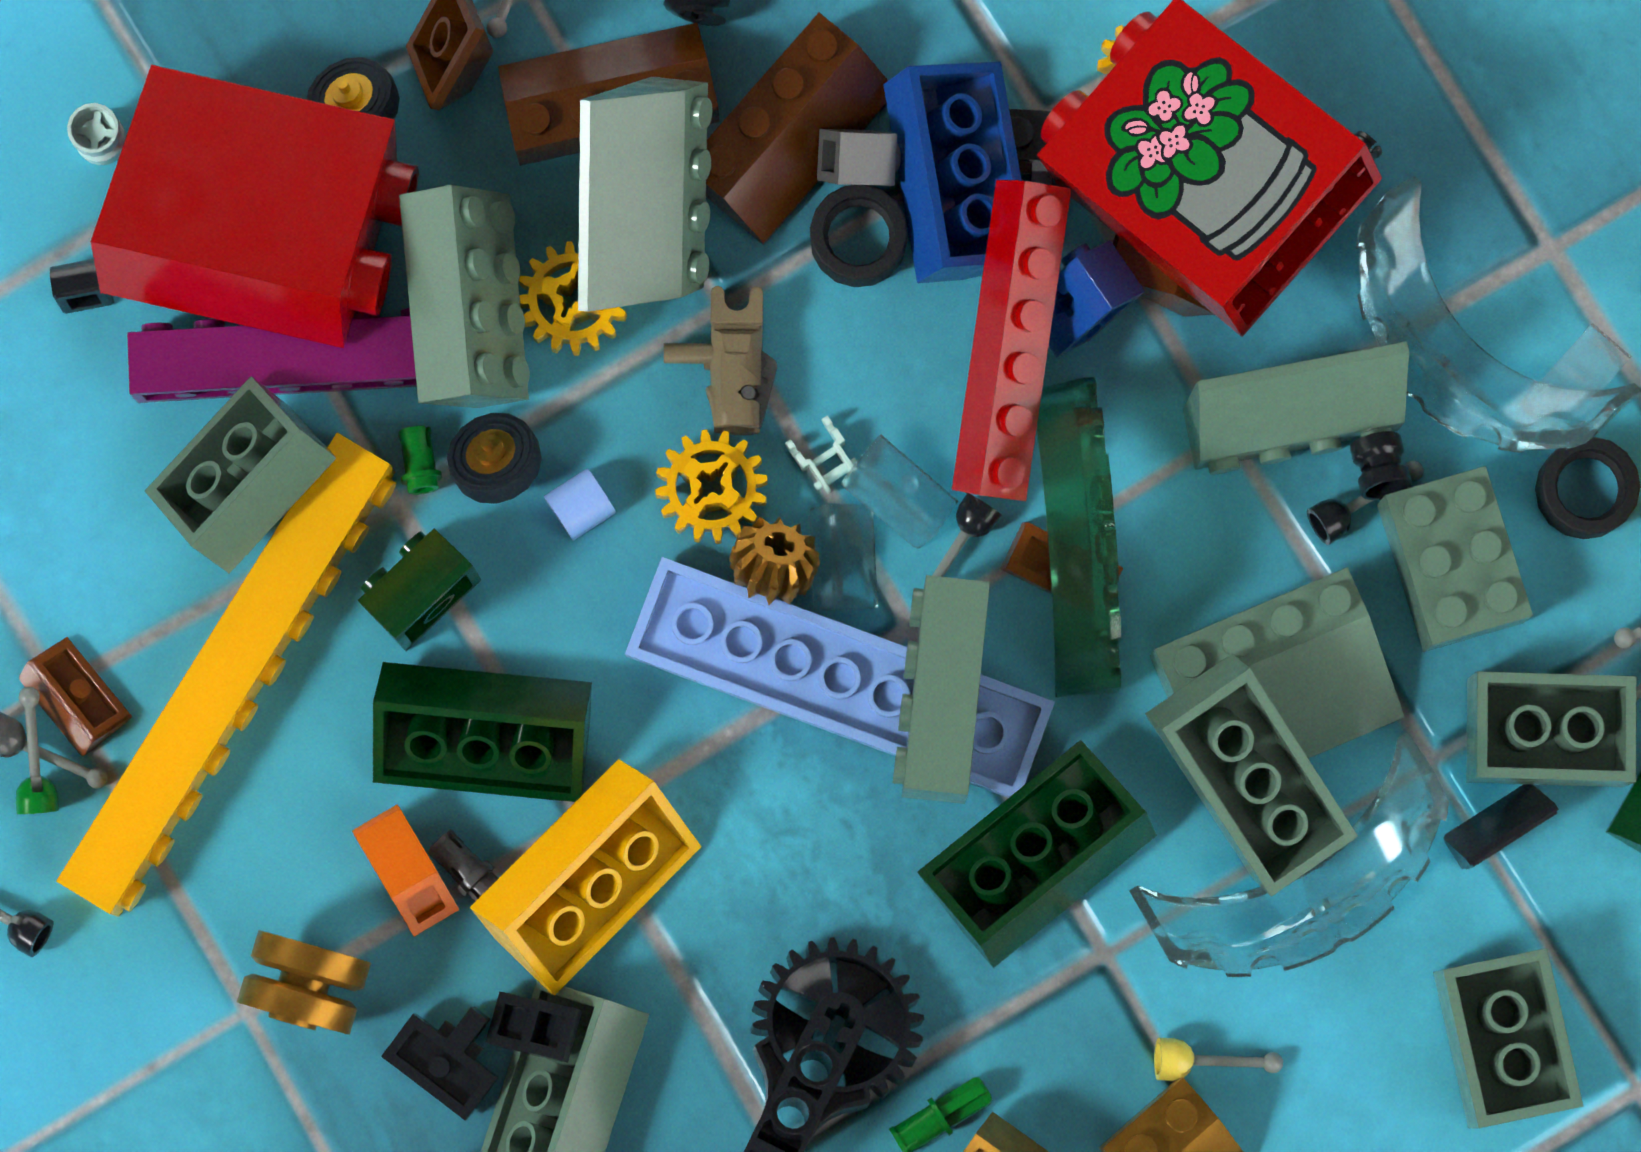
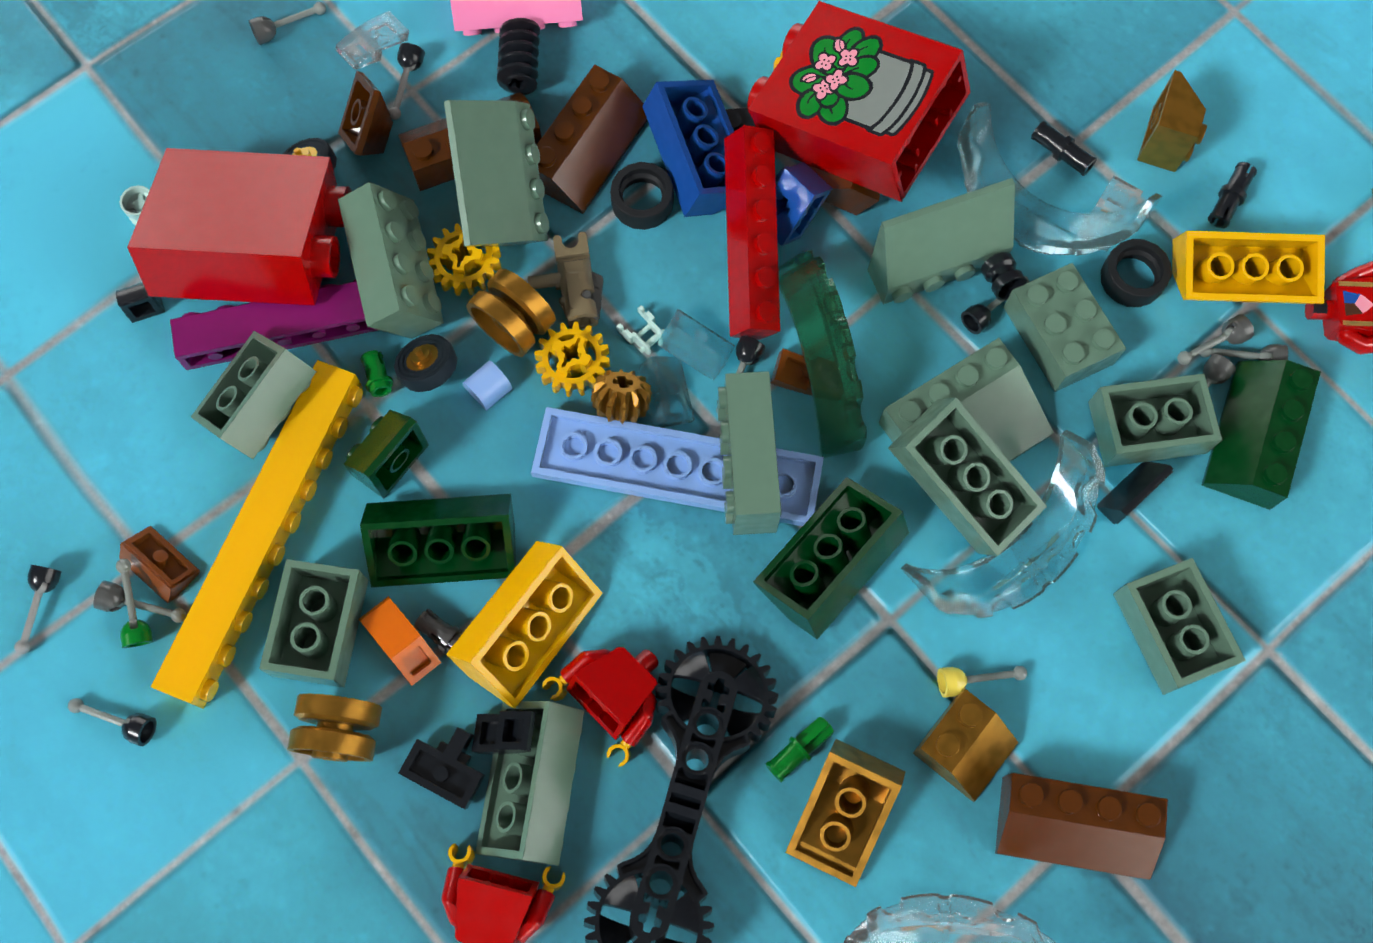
camera: 10 degrees left, 10 degrees down
(290, 827) = (314, 623): none -> sand green brick
(638, 401) = (511, 312): none -> pearl gold wheel
(694, 993) = (613, 691): none -> red torso
(858, 157) = (633, 144): brick -> none
(1527, 261) = (1063, 148): none -> black pin

